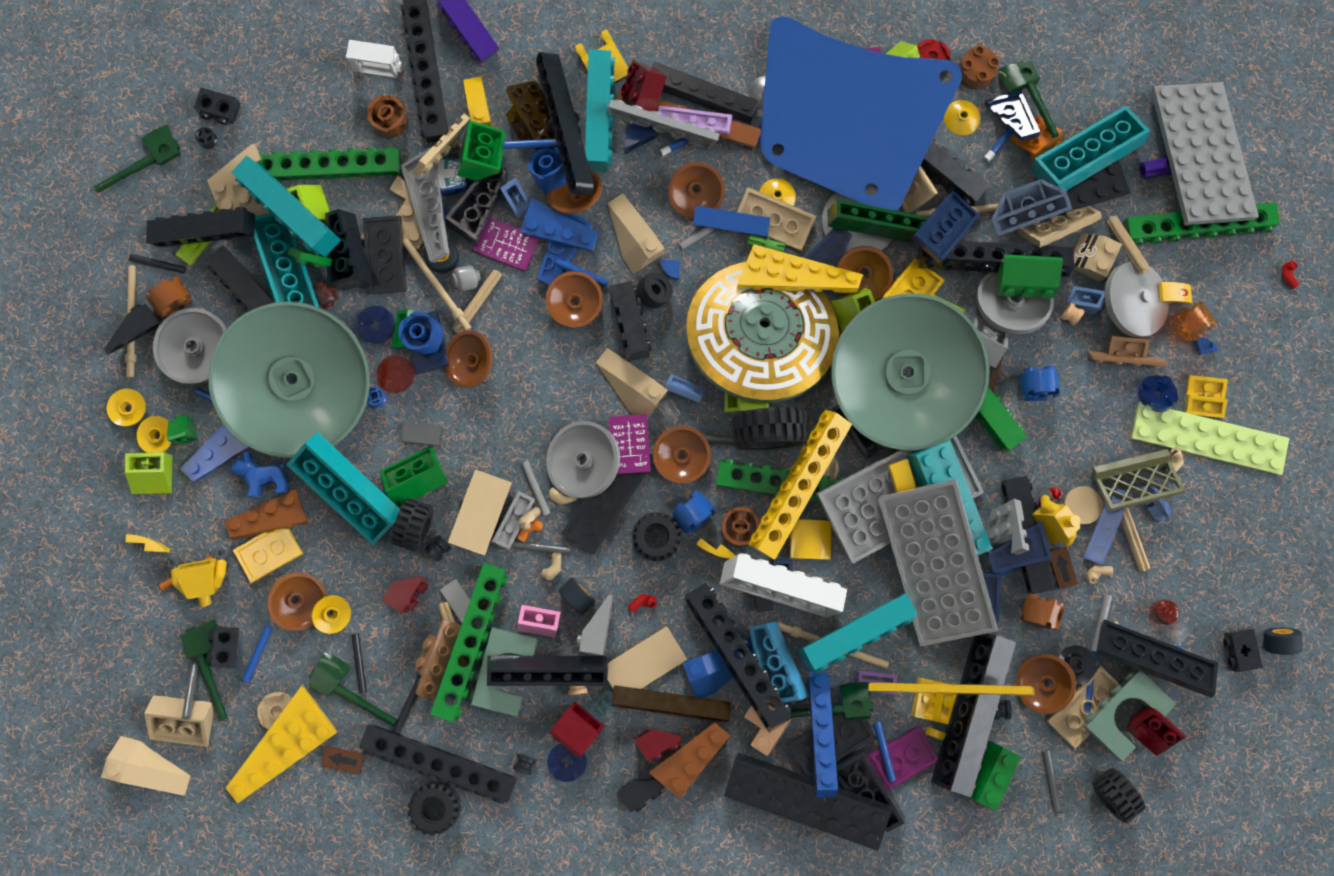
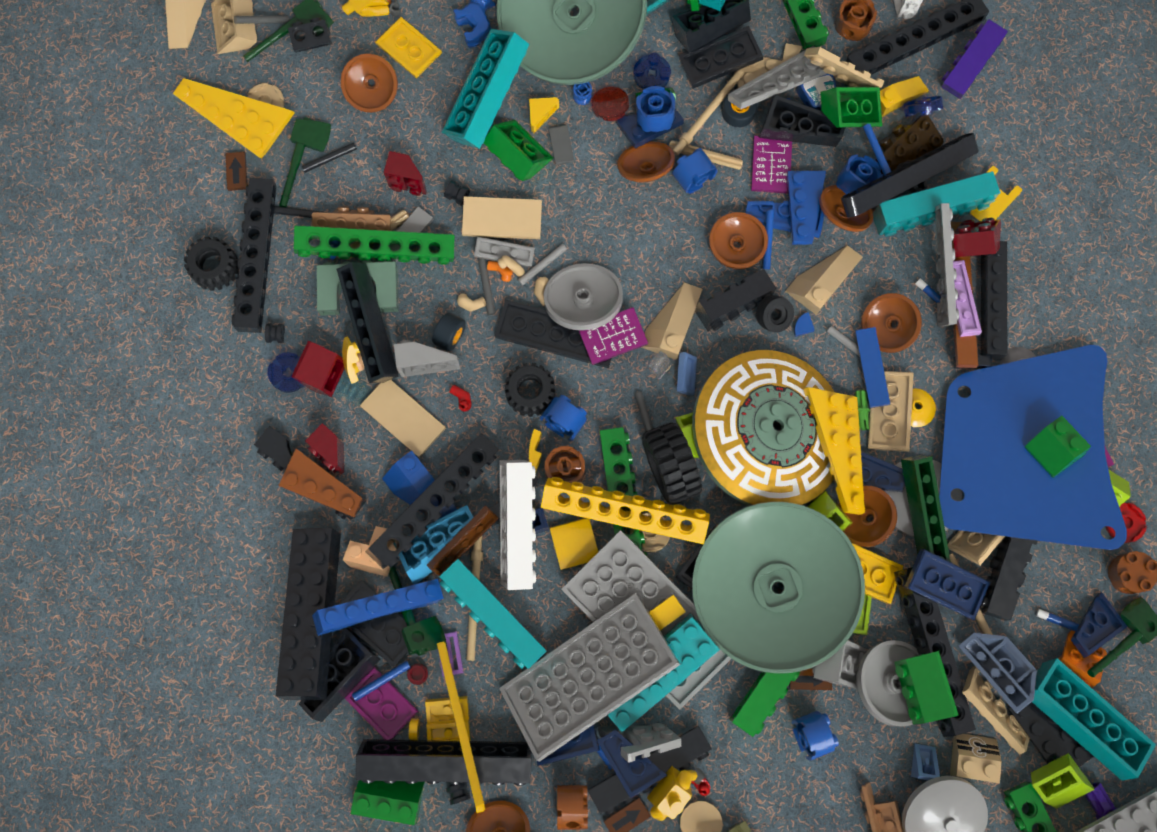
camera: 75 degrees right, 5 degrees down
(257, 653) = (313, 68): blue bar -> none
(275, 514) = (445, 42): dark orange wing -> none
(325, 295) = (662, 18): clear red head -> none
(337, 620) = (358, 121): yellow dish -> none
(381, 443) = (541, 110): none -> yellow slope
(412, 524) = (470, 159): black tyre -> none
(465, 278) = (724, 136): light grey head -> none
(492, 317) = (694, 171): none -> blue brick
(499, 87) = (925, 106): none -> clear blue plate
(515, 197) = (820, 156): medium blue slope -> none
(538, 621) = (413, 303): bright pink brick -> none
(577, 697) = (349, 356): none -> yellow slope
(638, 136) = (924, 251): dark blue slope -> none
(671, 703) = (369, 453): dark brown tile -> none
(681, 440) = (622, 376): dark orange dish -> none
(783, 640) = (463, 541): none -> reddish brown tile
(857, 89) = (1057, 446): none -> green slope
(886, 716) = (417, 674): none -> dark red plate
(960, 125) = (1064, 576): yellow dish -> none
(1072, 314) = (903, 752): light nougat wheel -> none
(1128, 245) = (1001, 791): tan axle -> none
(1132, 194) = (1060, 782): none -> lime slope

